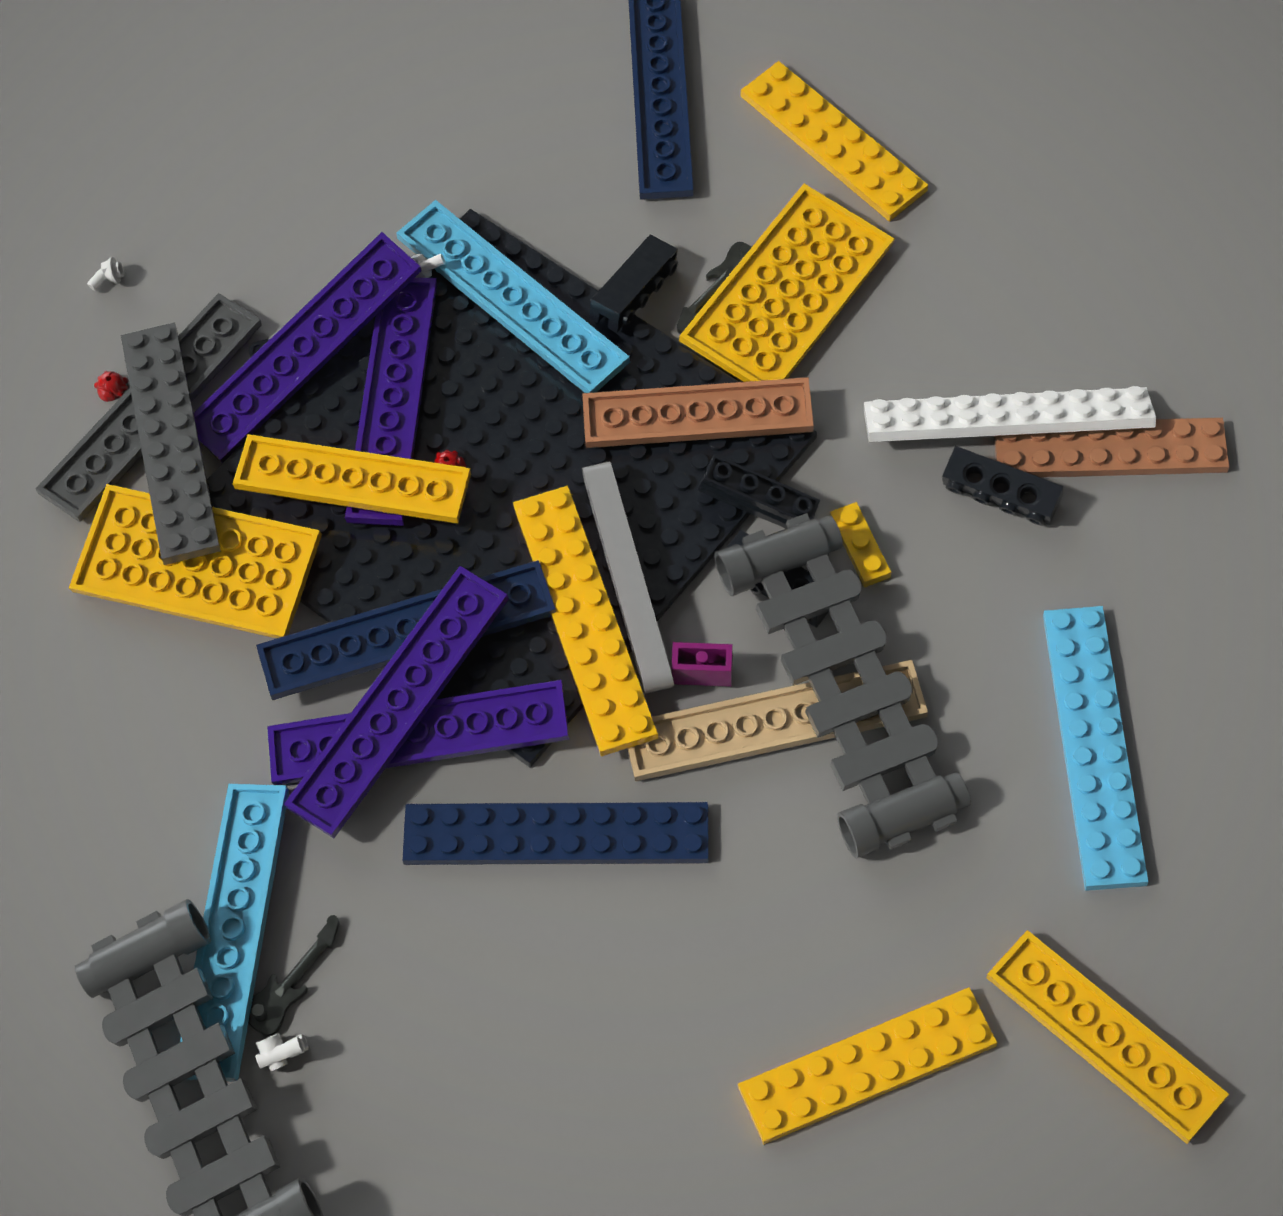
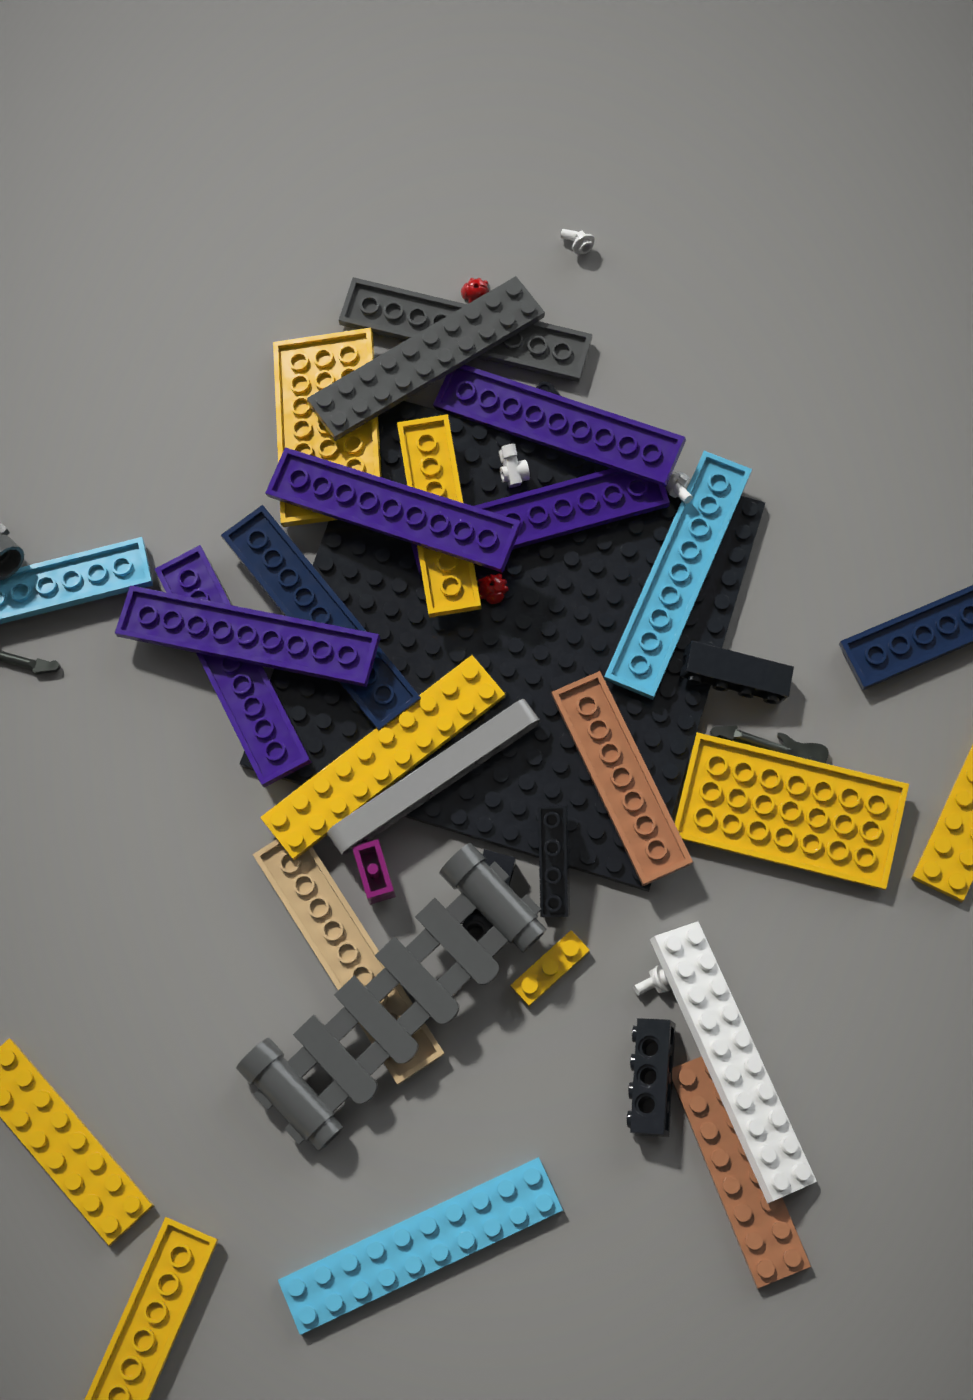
camera: 70 degrees right, 10 degrees up
(327, 514) = (394, 509): none -> dark purple plate
(333, 402) = (513, 470): none -> white plate
(556, 833) = (186, 812): dark blue plate -> none
(908, 452) = (657, 980): none -> white plate

